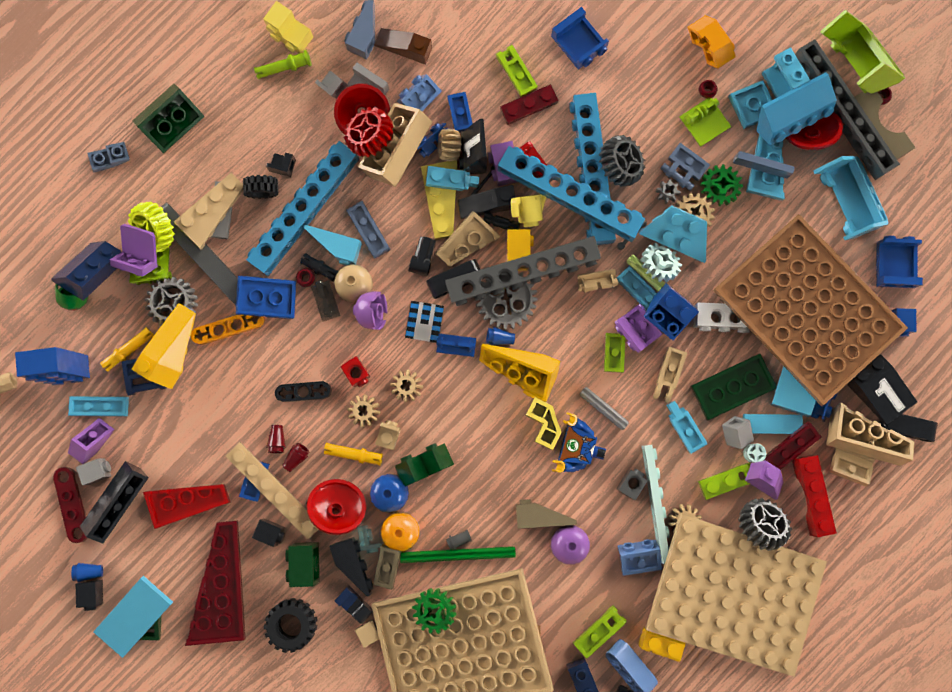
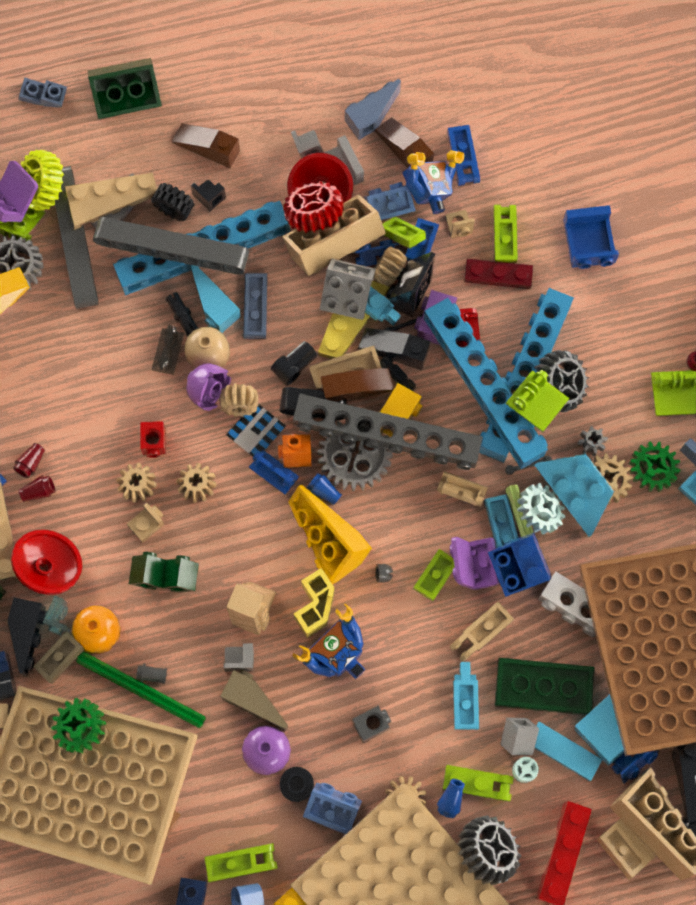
camera: 25 degrees right, 10 degrees down
(227, 326) = (52, 323): light orange beam -> none
(257, 126) = (208, 143): none -> reddish brown slope
(265, 297) = (109, 312): blue tile -> none
(281, 222) = (171, 245): none -> dark grey beam
(287, 29) = (294, 65): light yellow brick -> none
(289, 398) = (70, 427): black beam -> none
(291, 62) = (280, 101): lime pin -> none
(299, 277) = (162, 310): dark red plate -> none
(353, 454) = (105, 527): yellow pin -> none
(389, 493) = (109, 583): blue cylinder -> none
(400, 308) = (238, 400): none -> tan gear
(429, 179) = (346, 288): none -> light grey bracket
(441, 61) = (431, 181): none -> torso
(444, 113) = (403, 232): none -> lime plate
(451, 27) = (461, 140): none -> blue plate
(463, 321) = (295, 450): none -> orange brick
(479, 248) = (356, 384): none -> reddish brown slope
(483, 86) = (460, 228): none -> tan bracket
(503, 451) = (250, 607): none -> tan wedge
(512, 492) = (239, 658): none -> light grey panel
(528, 209) = (433, 376): light yellow piece -> none
(576, 372) = (383, 572): none -> dark grey hinge
(604, 408) = (390, 628): light grey axle -> none
(605, 555) = (296, 784): none -> black piece
(618, 186) = (537, 400): none -> lime hinge
(655, 496) = (390, 750): light aqua plate -> none
(688, 162) = (632, 422): sand blue plate -> none
(717, 504) = (450, 801): none -> blue cone
(765, 478) = (520, 803): medium lavender slope -> none
(793, 446) = (570, 787): dark red tile -> none

